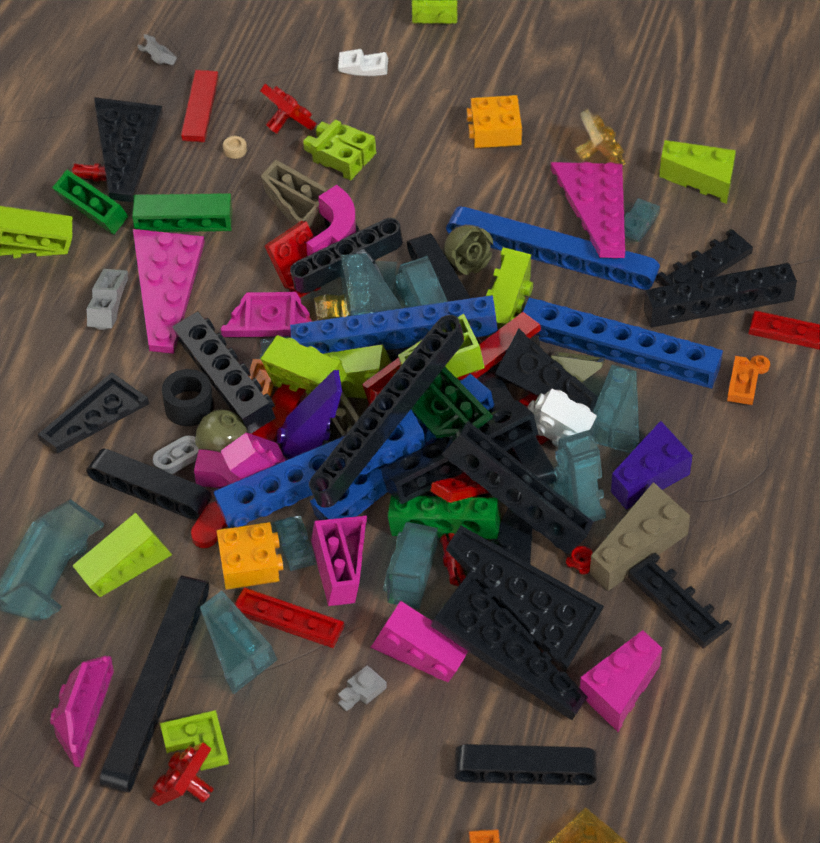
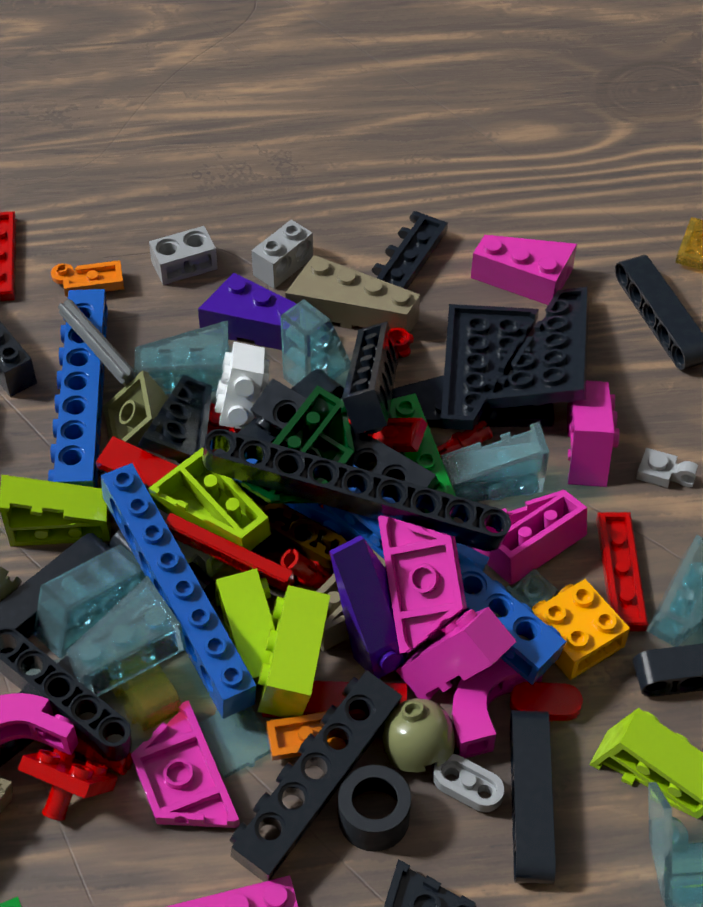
camera: 115 degrees left, 0 degrees up
(309, 439) = (421, 580): none -> dark pink wing
(652, 348) = (96, 341): none -> dark grey axle
(714, 508) = (282, 254): none -> light grey brick
(744, 443) = (183, 255): none -> light grey brick

